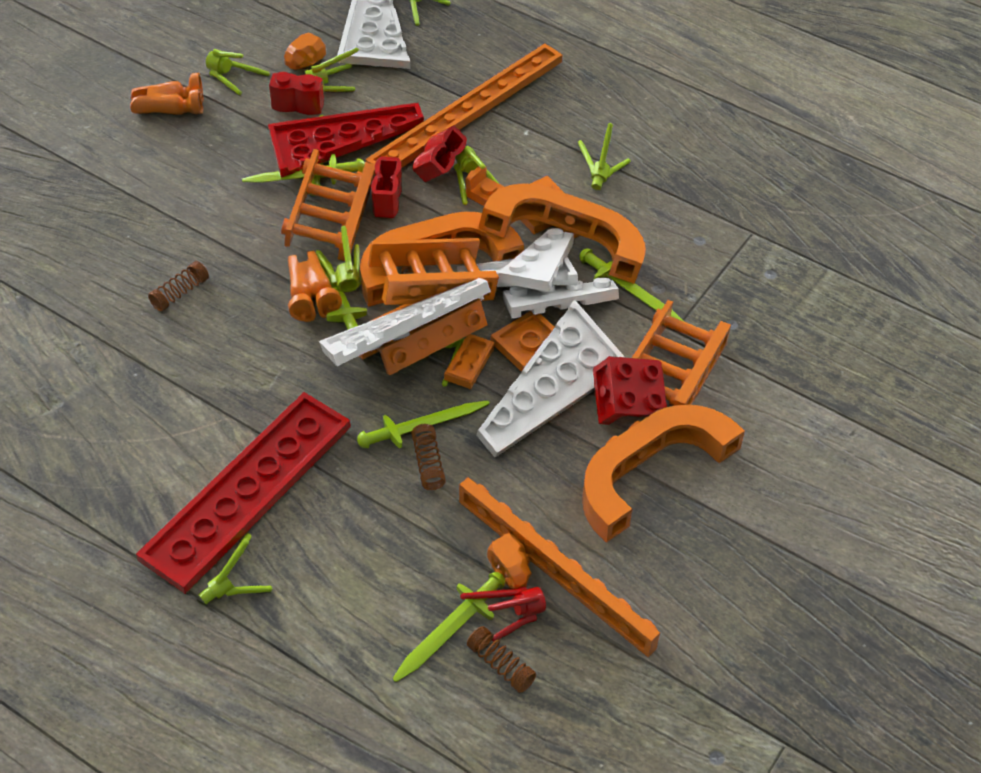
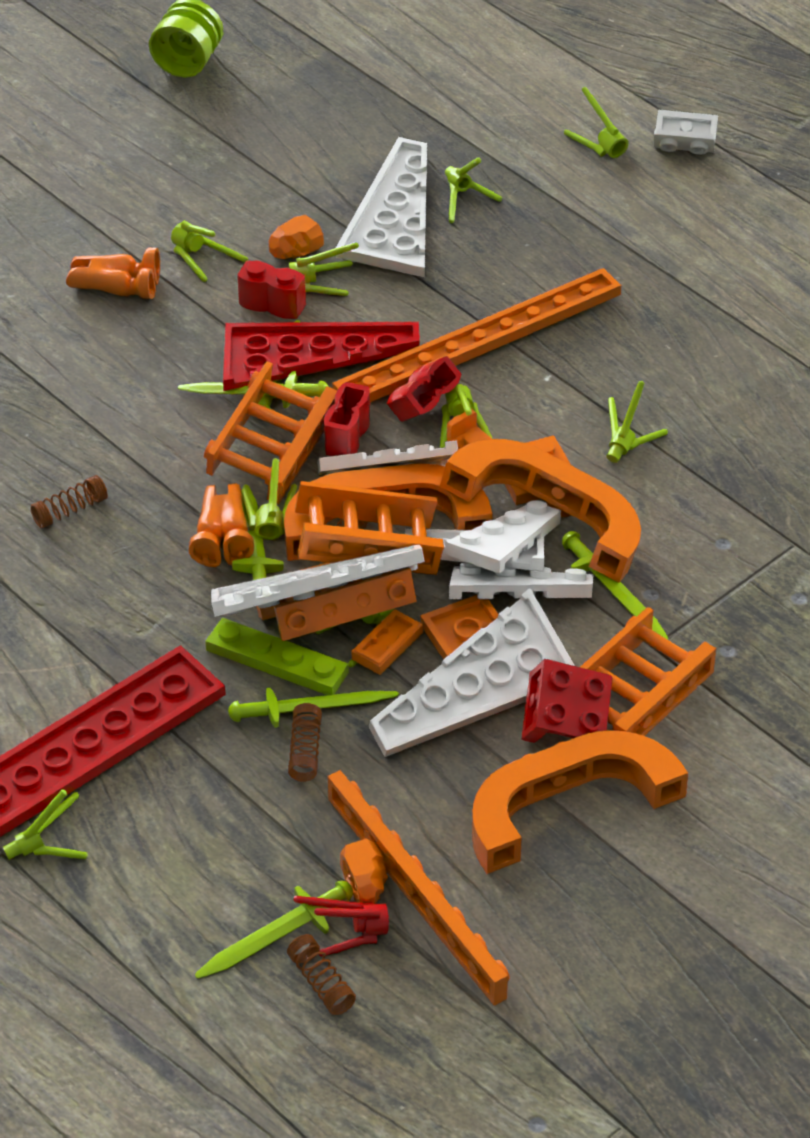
camera: 15 degrees right, 5 degrees down
(383, 388) = (277, 657): none -> lime plate
(430, 211) = (389, 457): none -> white wing

